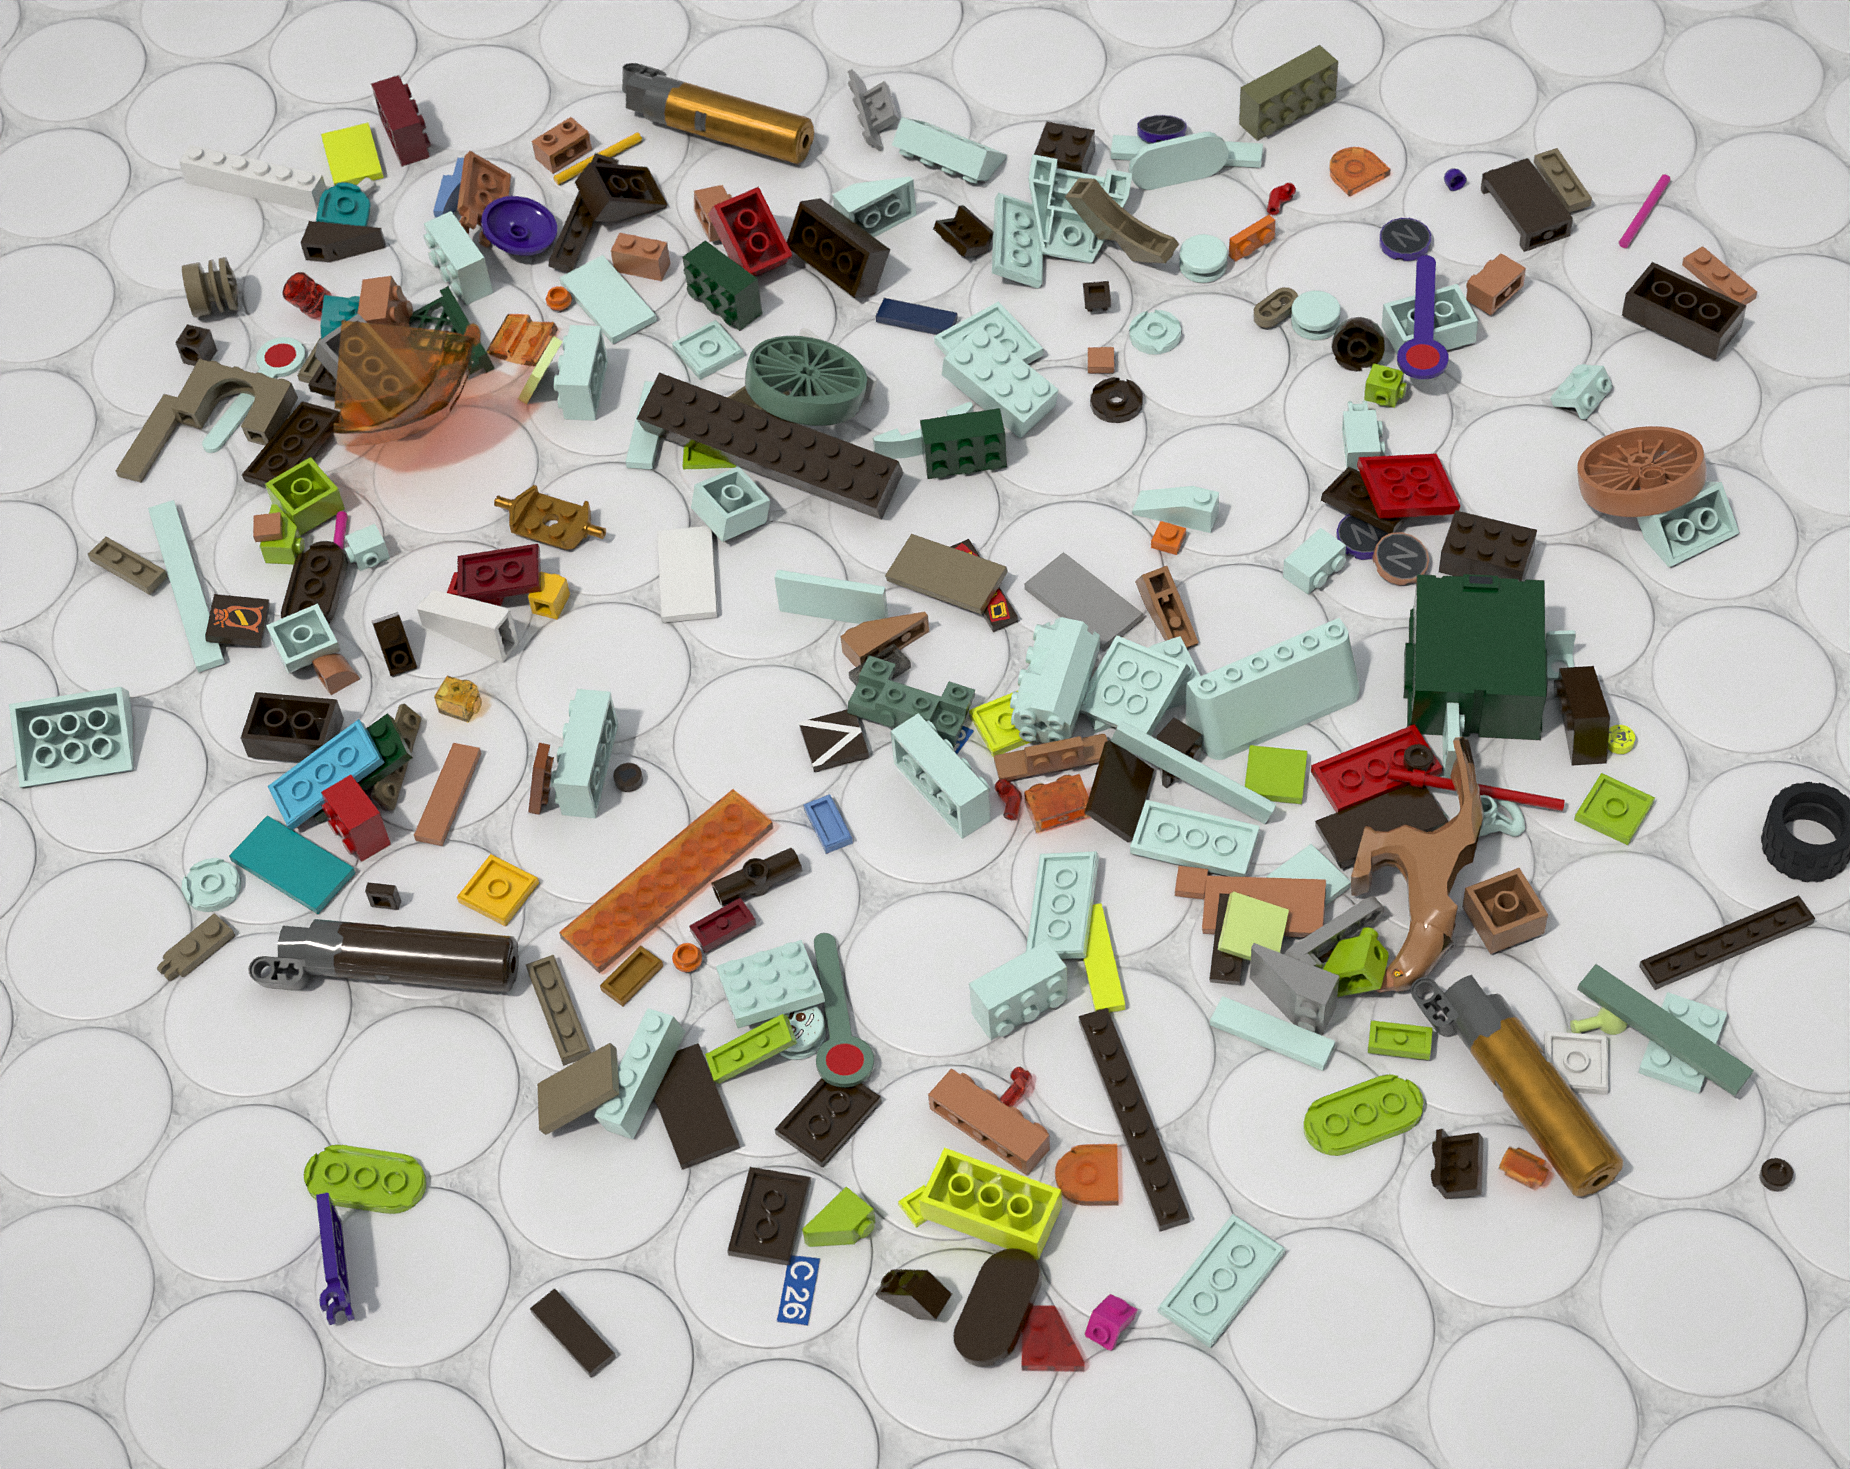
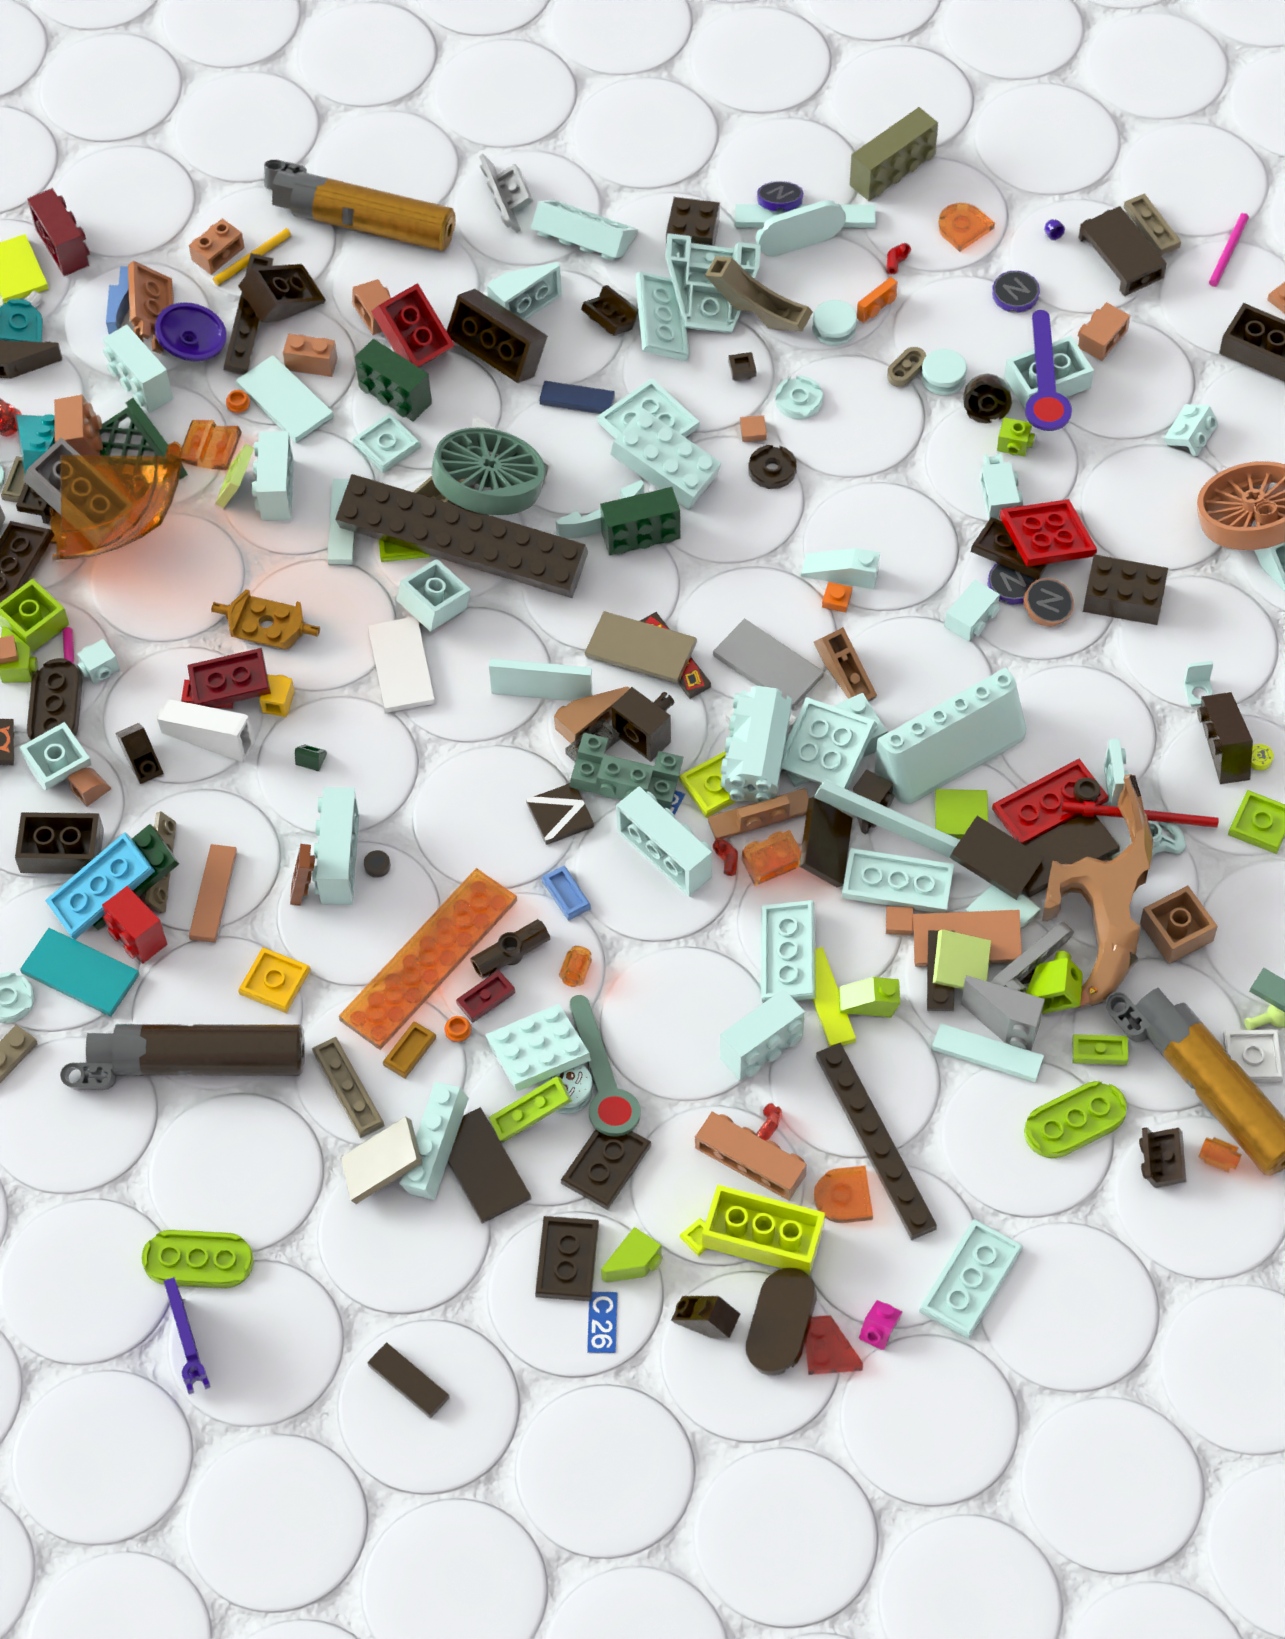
camera: 10 degrees left, 5 degrees up
(383, 896) = (170, 995): dark brown tile -> none
(458, 699) = (209, 802): clear yellow brick -> none
(574, 661) = (309, 757): none -> dark green slope
(825, 901) = (575, 966): none -> clear orange brick
(935, 650) = (643, 723): none -> dark brown brick
(1146, 961) = (870, 997): none -> lime slope
(1307, 821) = (996, 857): none -> dark brown tile
(1477, 647) = (1128, 685): dark green piece -> none

